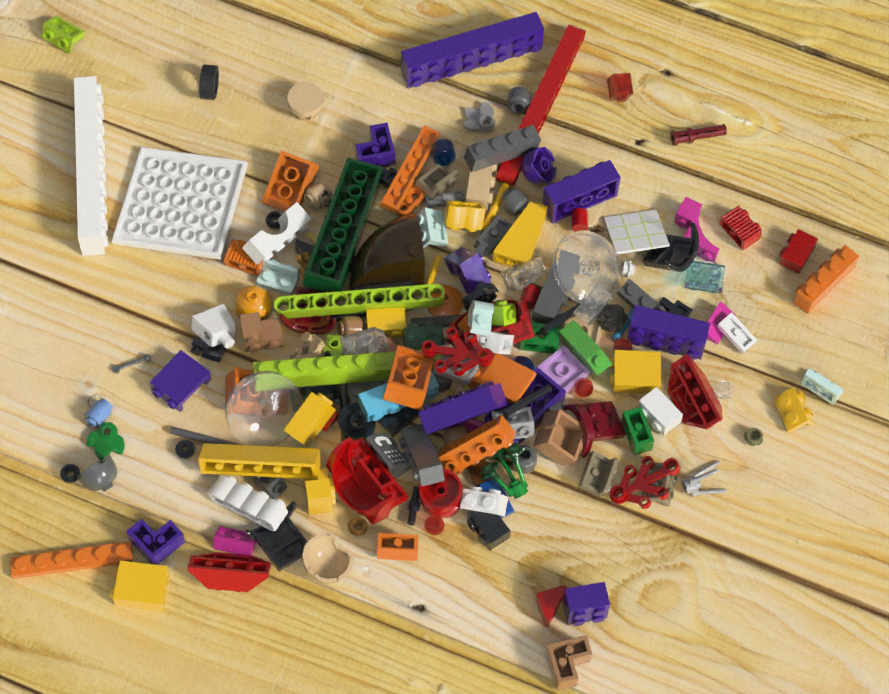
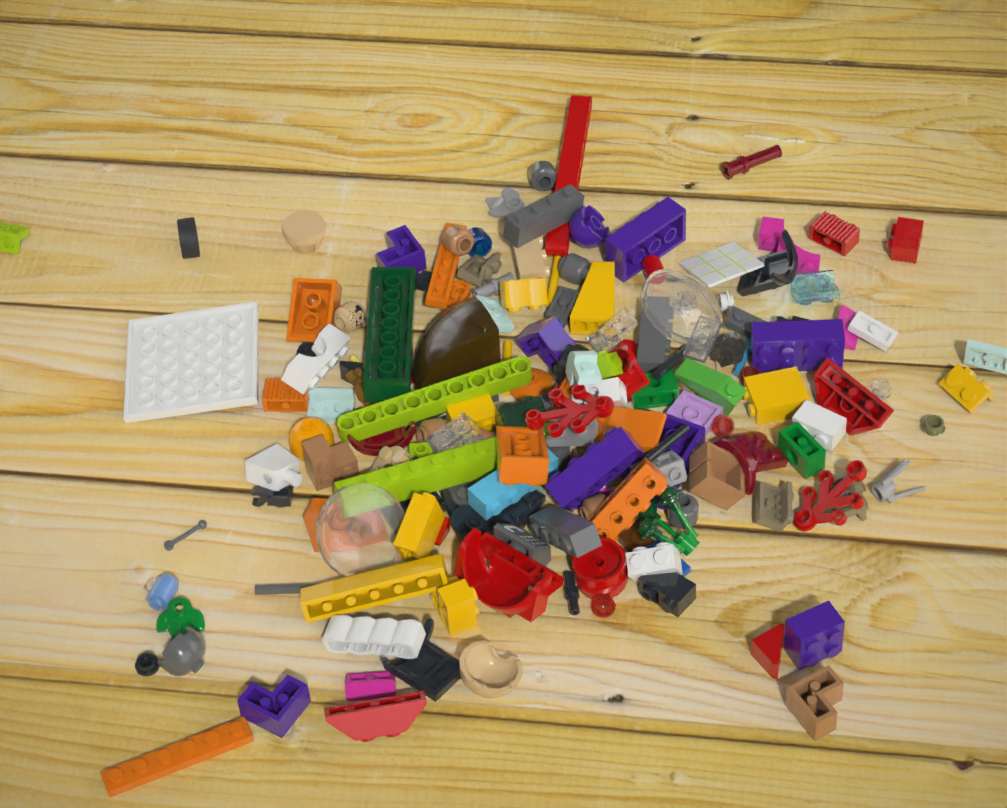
camera: 10 degrees left, 15 degrees down
(90, 166) = (77, 349): white brick -> none
(140, 585) = (271, 760): yellow brick -> none
(179, 380) = (249, 534): dark purple panel -> none
(185, 454) = (276, 608): black plate -> none
(273, 485) = (397, 610): dark grey bracket -> none
(357, 521) = (513, 625): pearl gold plate -> none
(397, 546) = (569, 636): orange brick -> none
(425, 150) = (458, 240): none -> medium nougat head
(472, 50) = (473, 140): dark purple brick -> none
(620, 87) = (649, 137): clear red brick -> none
(826, 279) = (948, 257): orange brick -> none

